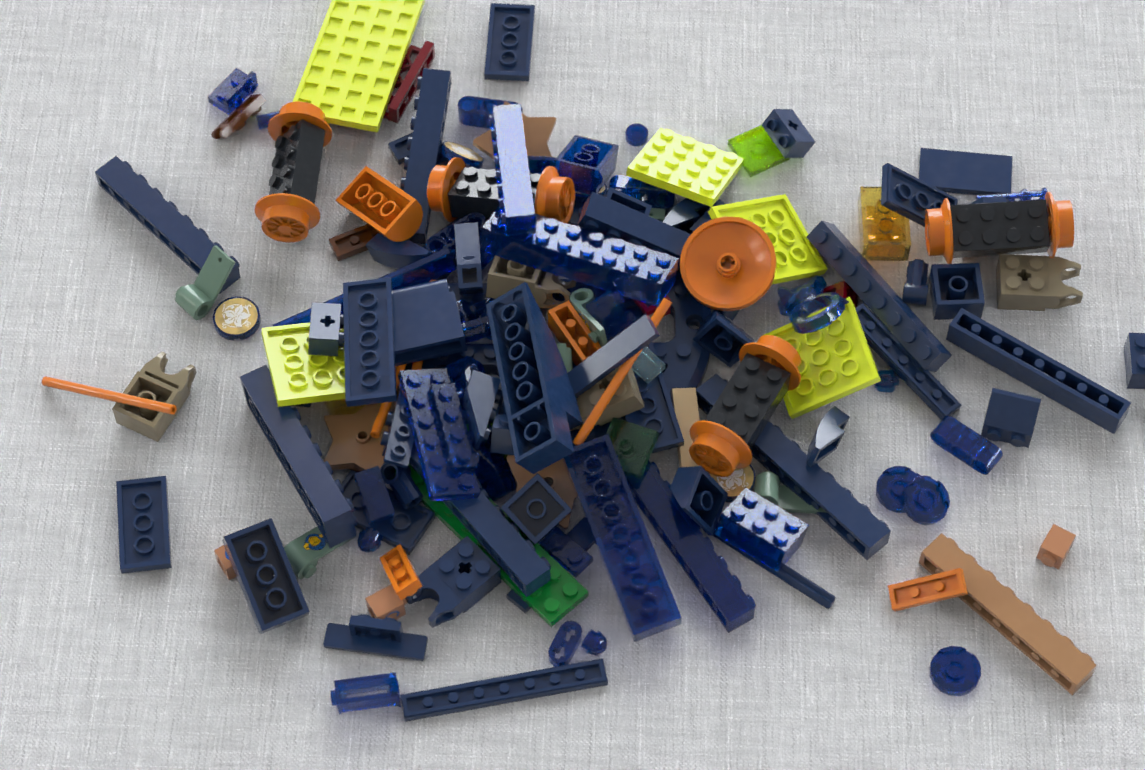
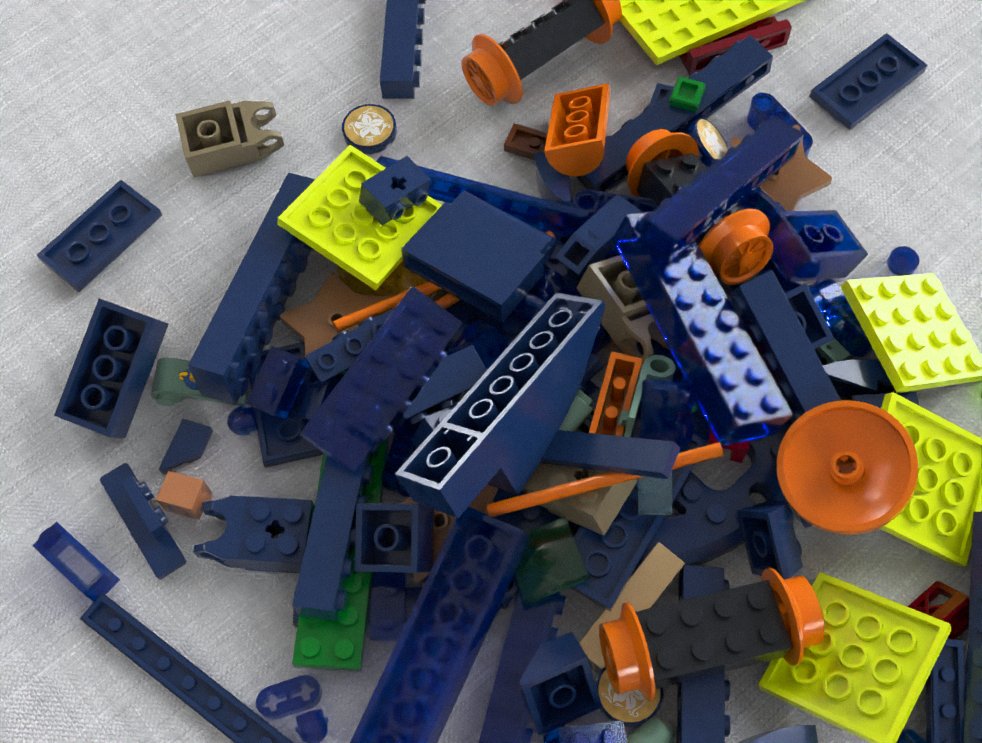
camera: 50 degrees right, 5 degrees up
(109, 395) = (185, 103): orange piece -> none
(199, 297) = (357, 84): sand green door -> none
(350, 583) = (186, 445): none -> dark blue tile
(369, 342) = (412, 235): dark blue plate -> none
(400, 572) = (220, 477): orange plate -> none
(424, 134) = (687, 94): none -> green tile
(807, 298) = (901, 579): animal -> none

